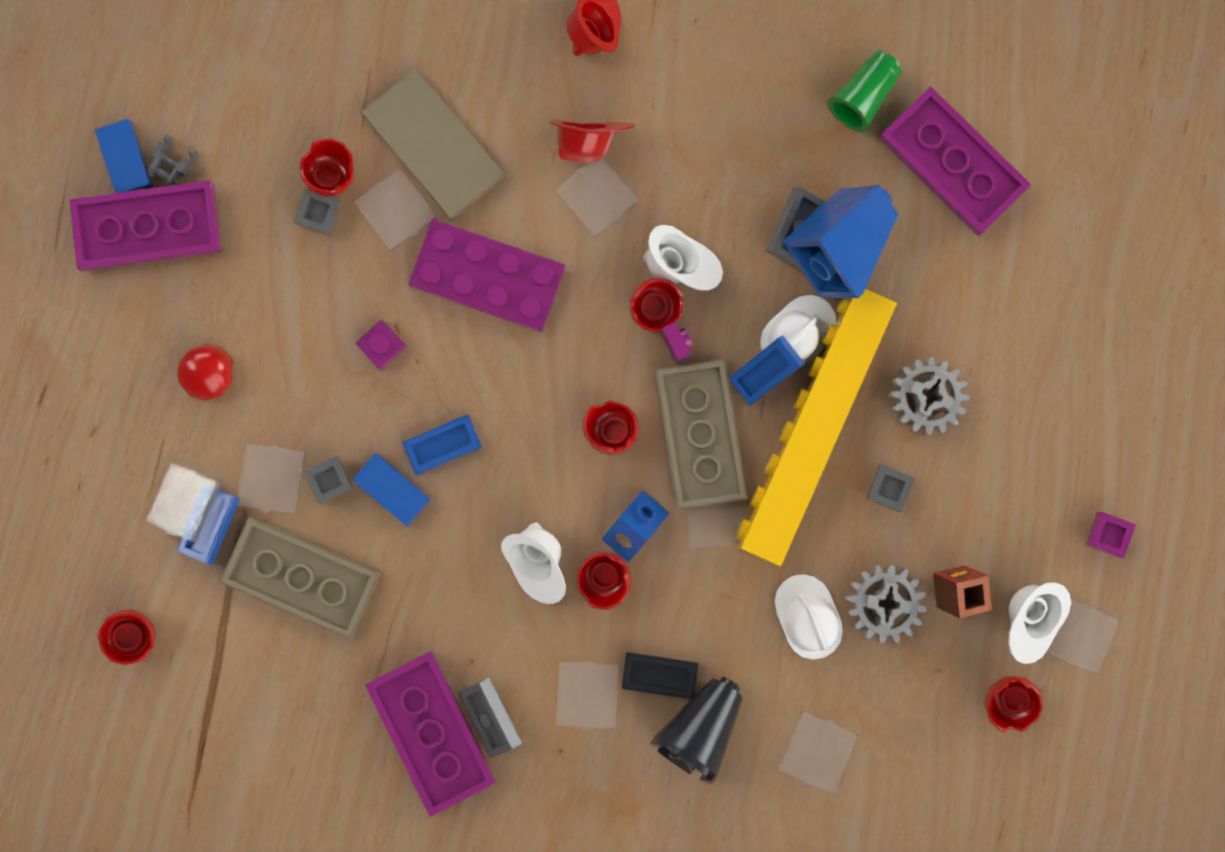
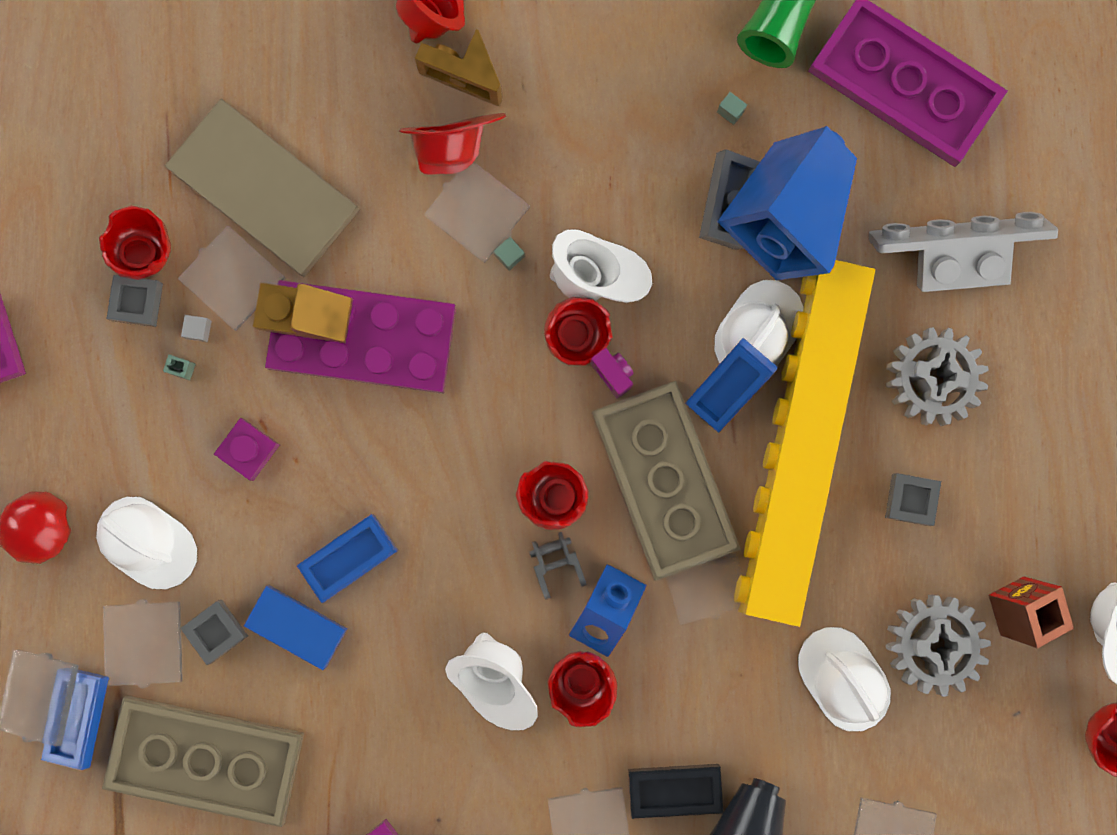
camera: 10 degrees left, 0 degrees up
(289, 401) = (146, 543): none -> white piece
(341, 271) = (179, 367): none -> sand green piece
(360, 243) = (196, 328): none -> light grey piece
(446, 247) = (303, 312): none -> pearl gold slope
(614, 89) = (470, 75): none -> pearl gold slope
(615, 234) = (509, 253): none -> sand green piece
(615, 480) = (541, 569): none -> dark grey piece
(812, 155) = (731, 108): none -> sand green piece
(970, 304) = (963, 253): none -> light grey bracket

